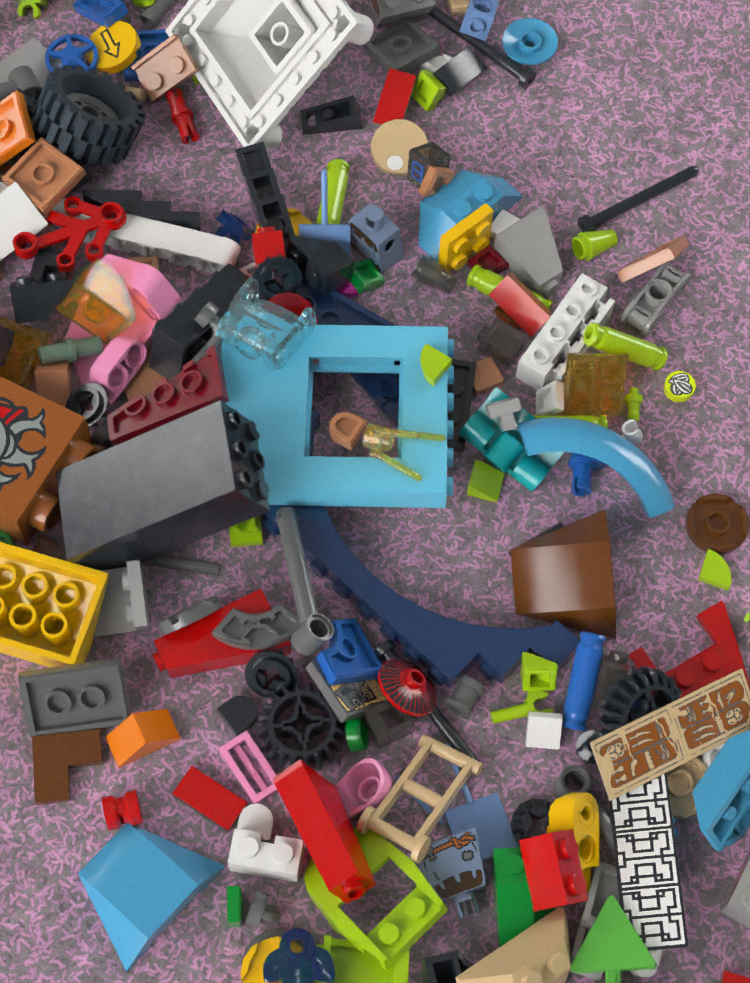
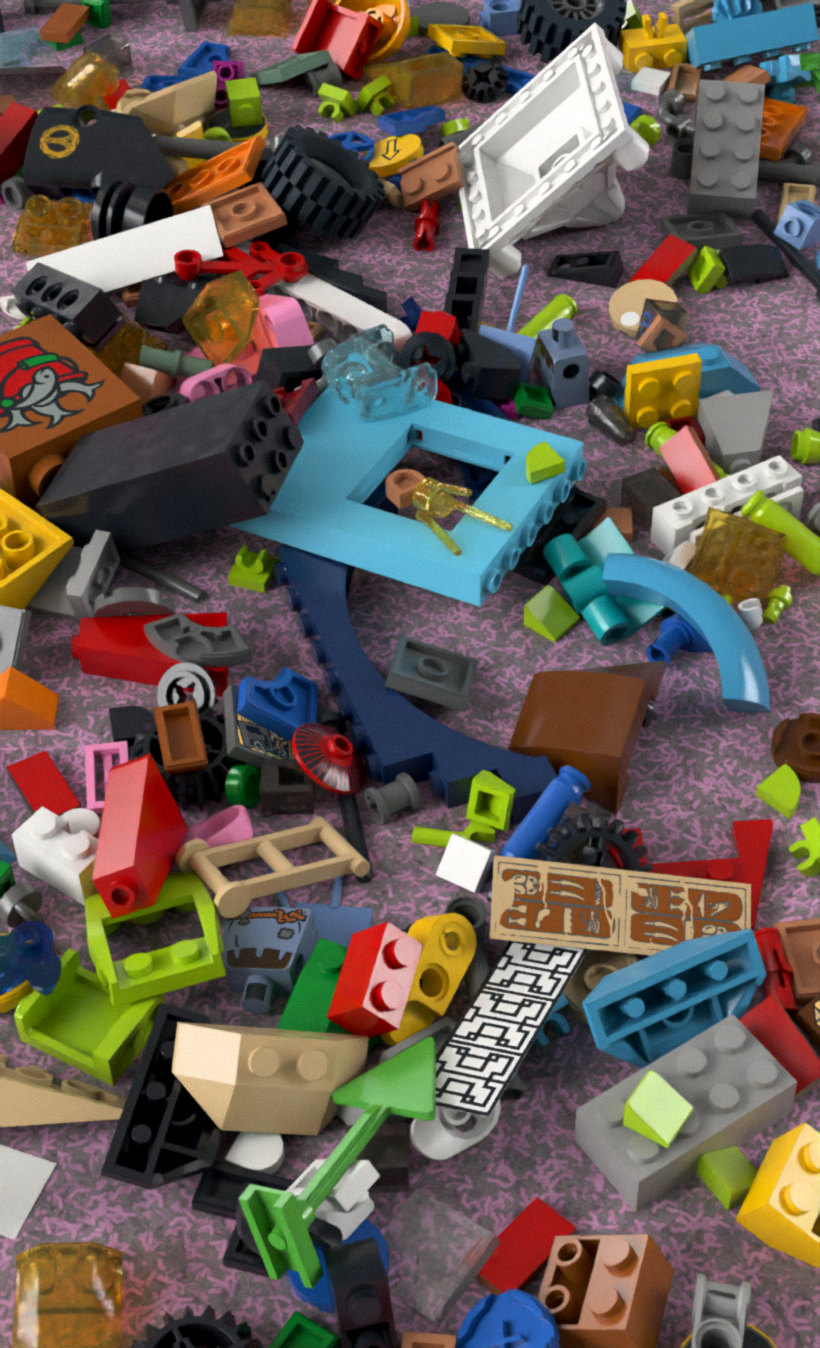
camera: 30 degrees right, 20 degrees down
(299, 722) = (180, 738): none -> dark orange tile
(314, 627) = (253, 645): dark grey piece -> none
(413, 240) = (605, 383): none -> black tile
(436, 577) = (432, 673): none -> dark grey tile
(504, 411) = (601, 535): light grey tile -> none

